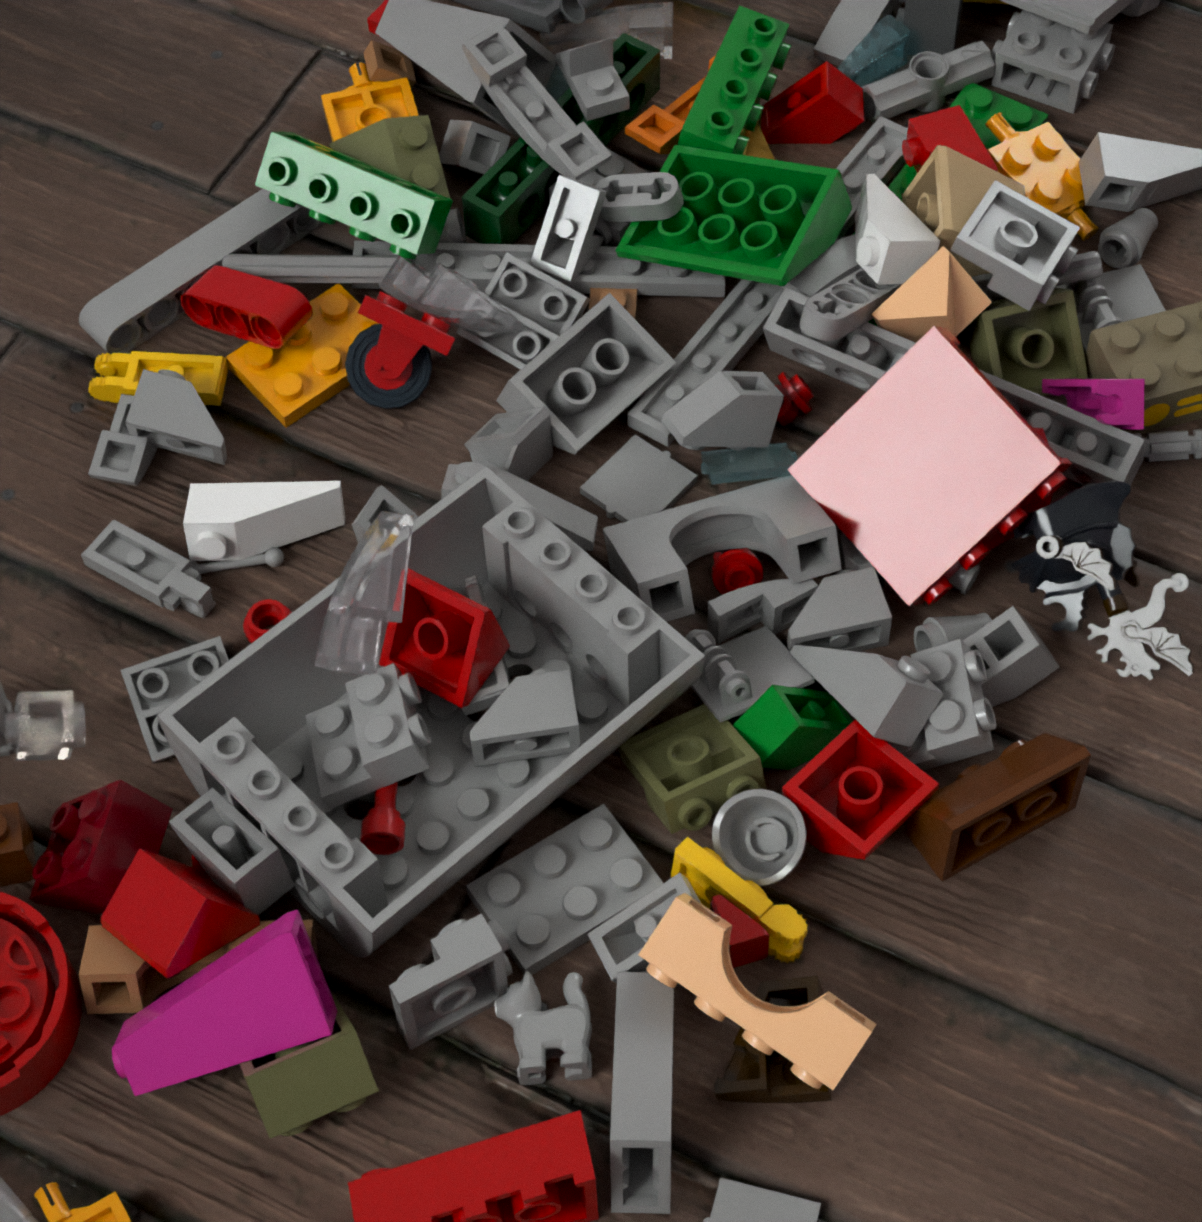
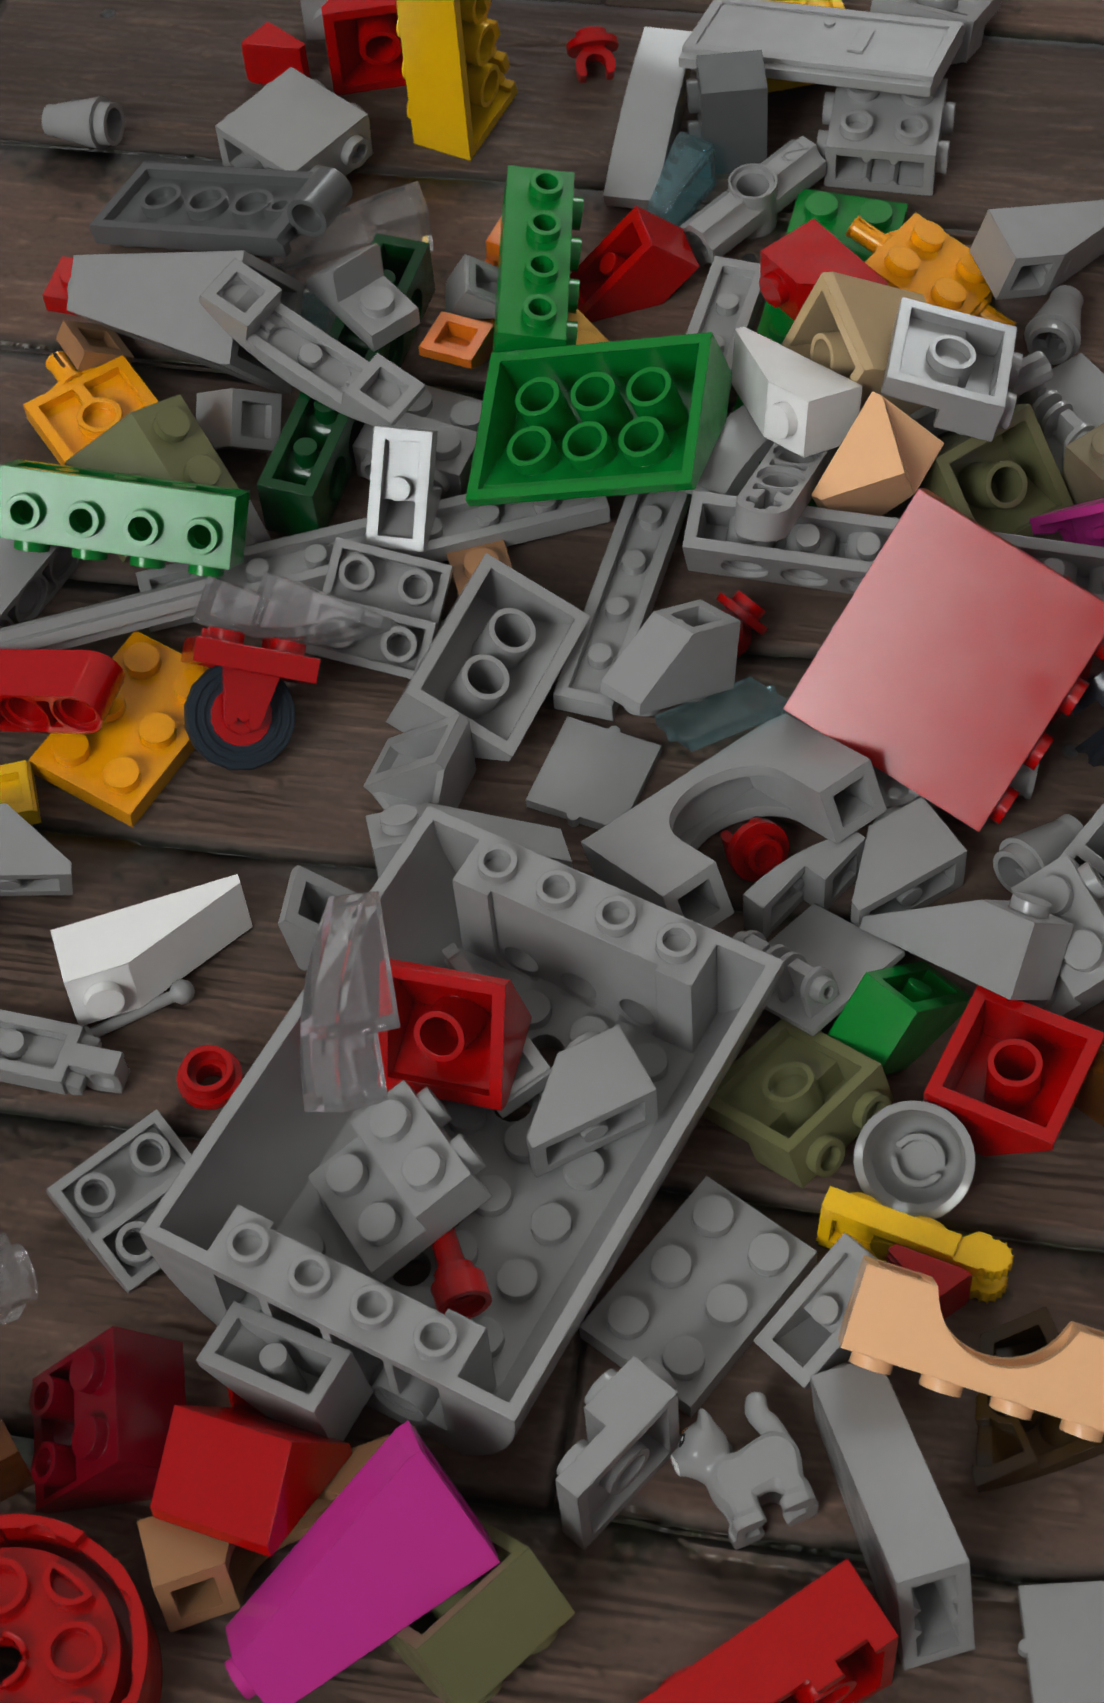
camera: 15 degrees left, 0 degrees up
(637, 197) = (473, 426): light grey beam -> none
(682, 93) = (472, 289): none -> light grey slope

